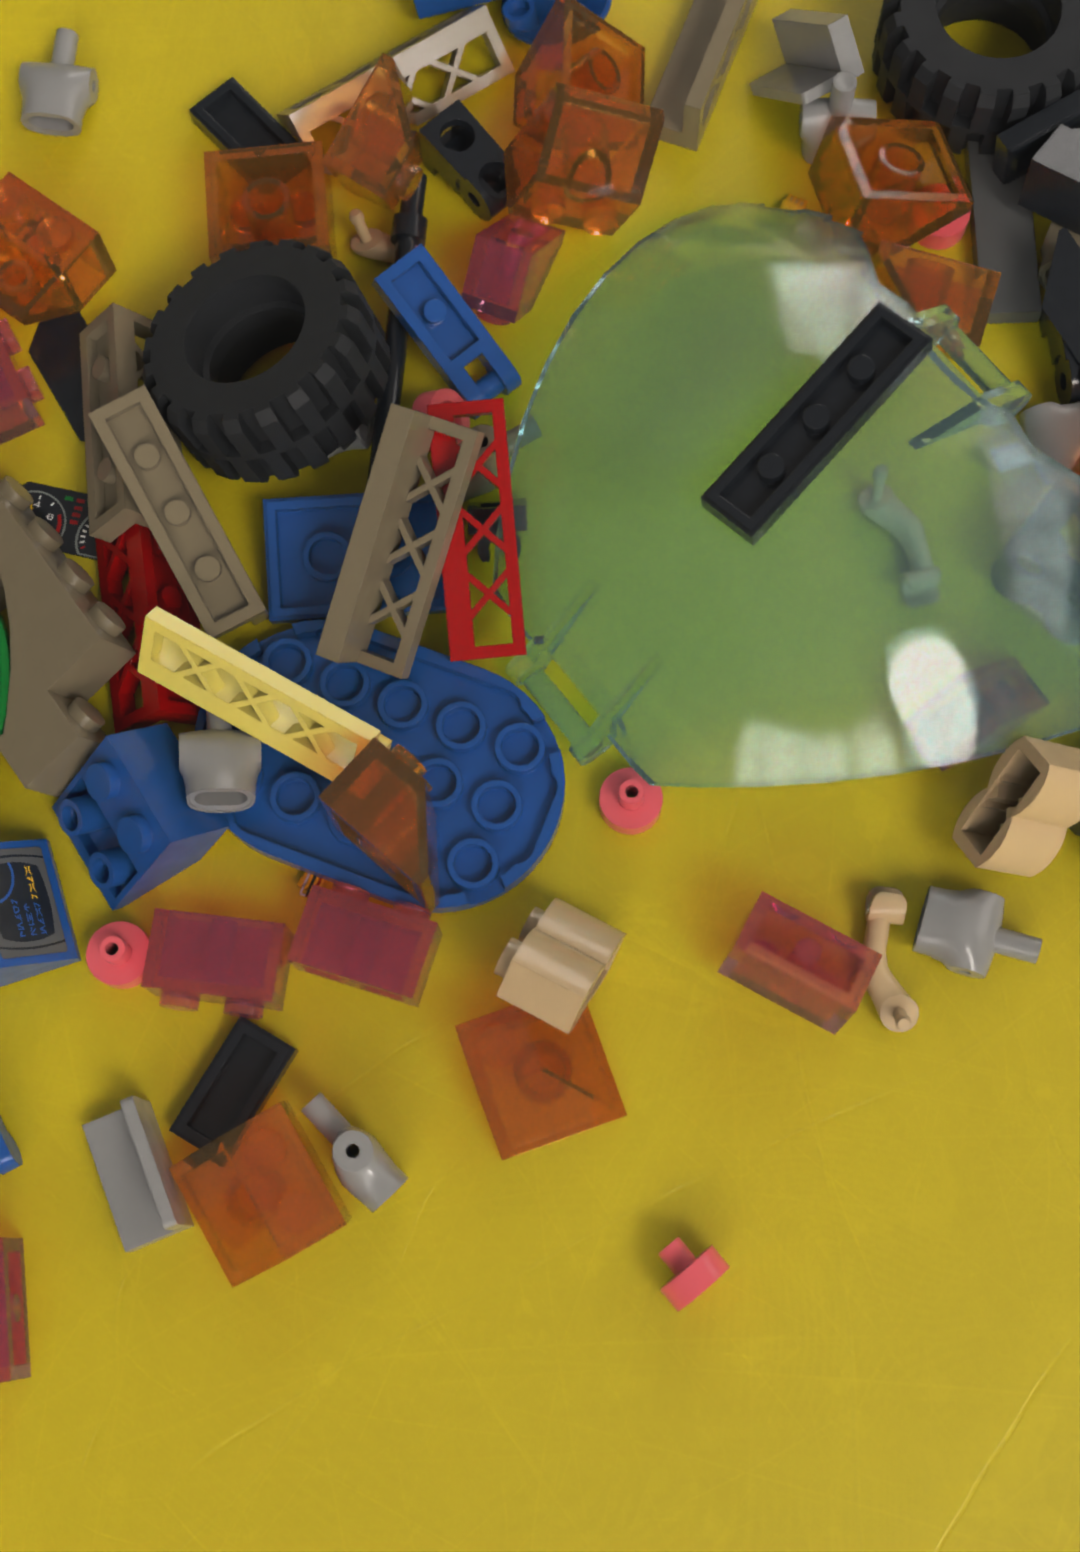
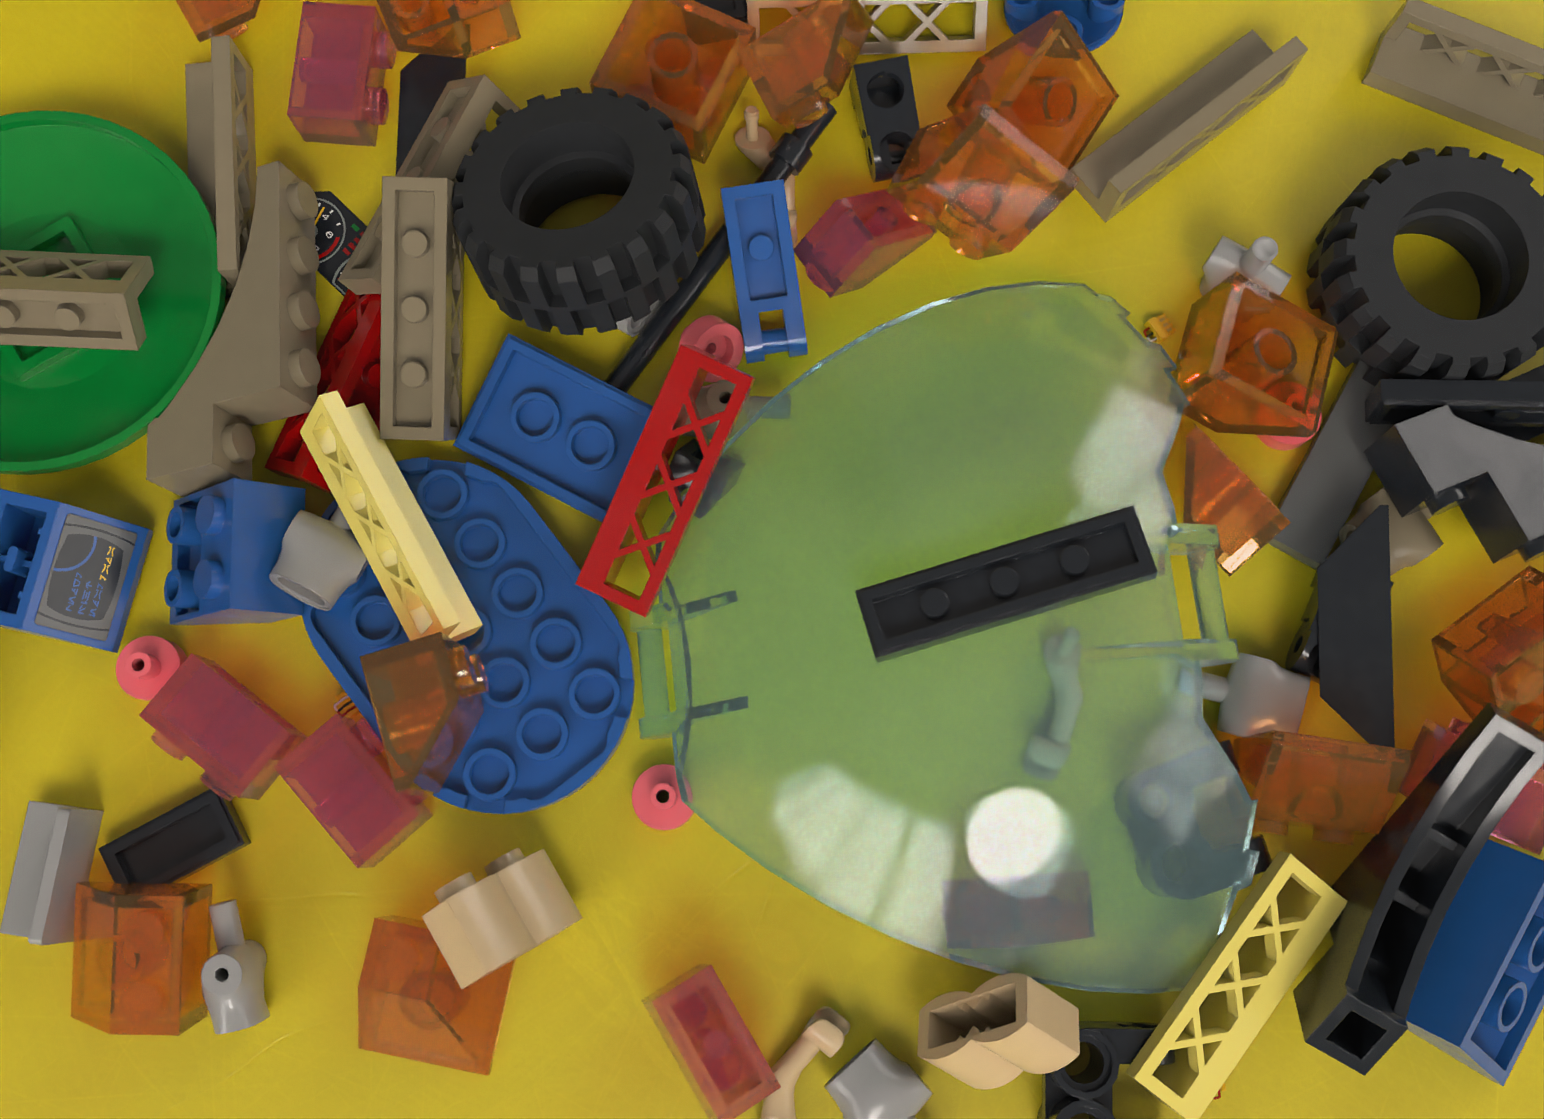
camera: 25 degrees right, 5 degrees up
(377, 539) = (571, 436): dark tan fence -> none
(814, 51) = (1263, 203): light grey panel -> none

